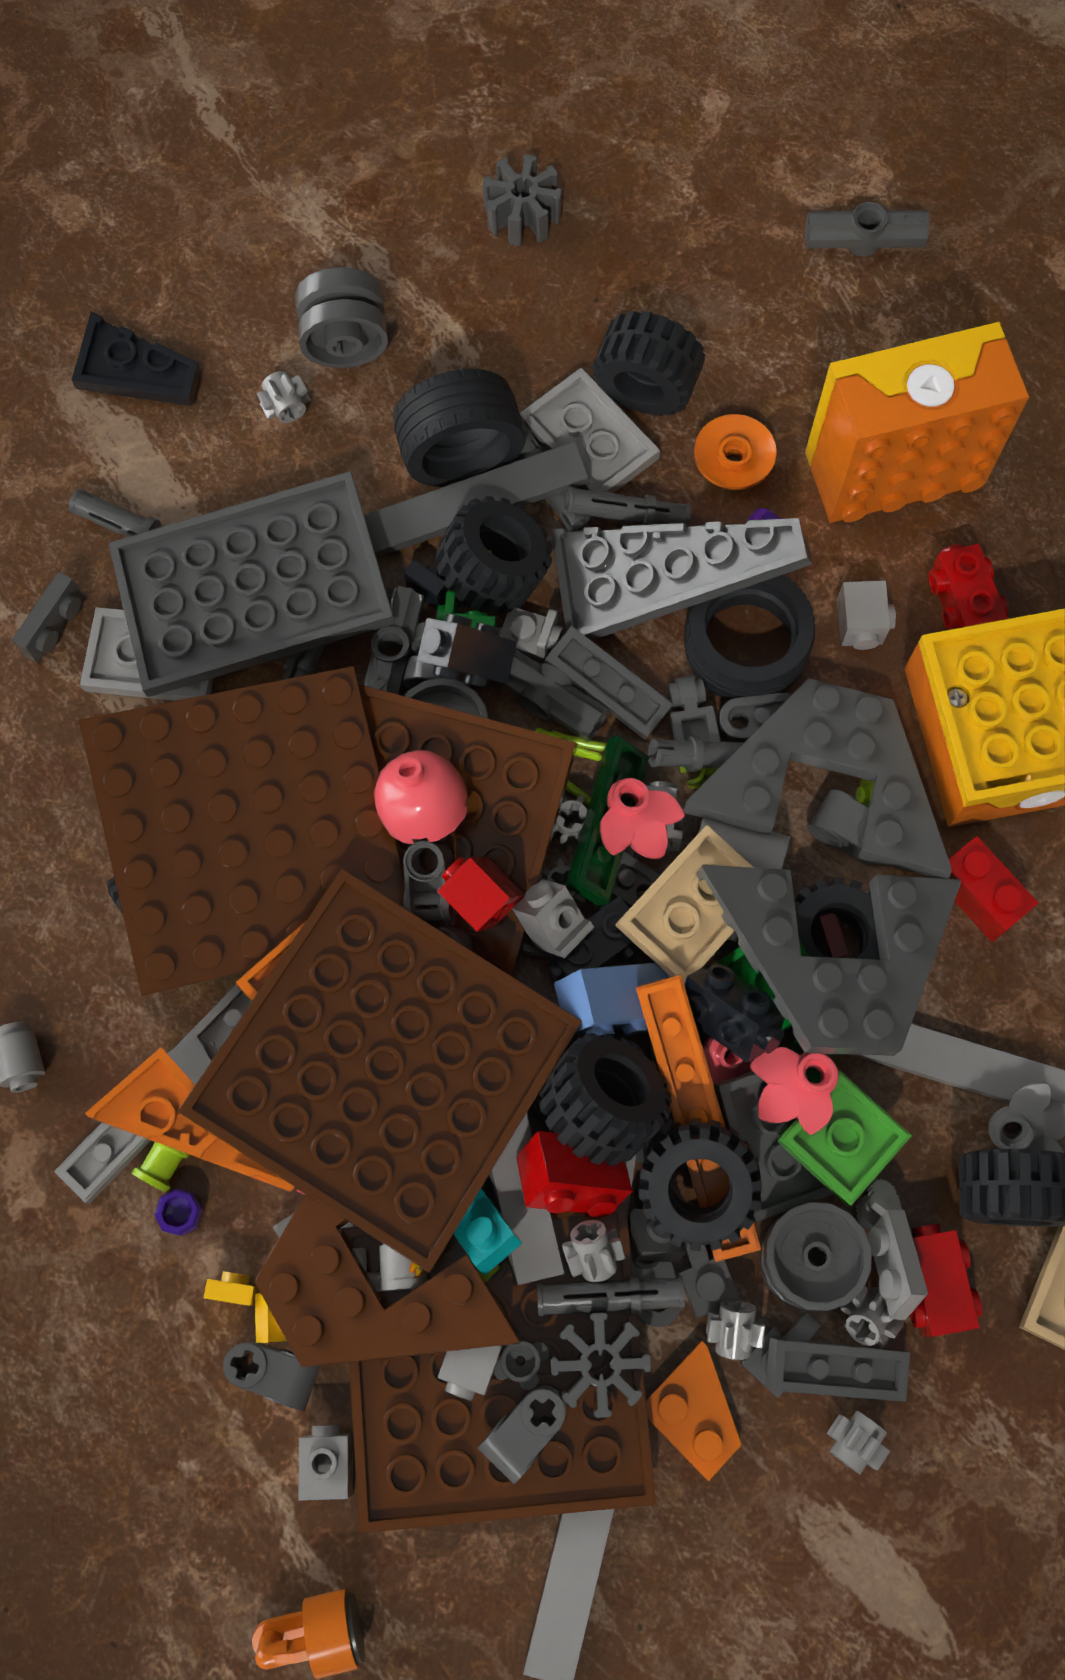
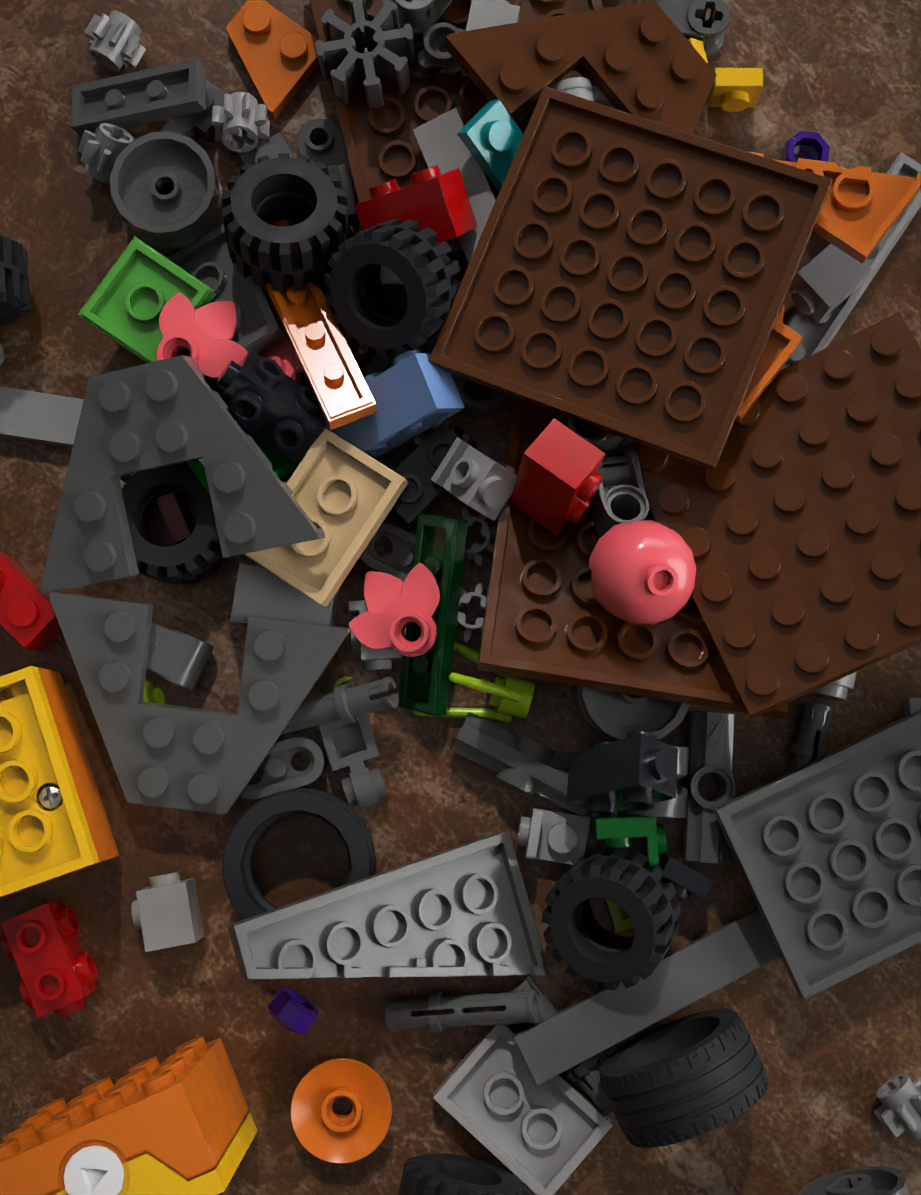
camera: 170 degrees right, 10 degrees up
(593, 1250) = (376, 139): light grey gear -> none
(609, 682) = (455, 782): dark grey plate -> none
(669, 1295) = (363, 116): dark grey pin -> none
(893, 1249) = (89, 205): light grey hinge -> none
(950, 1301) = (41, 178): red brick -> none

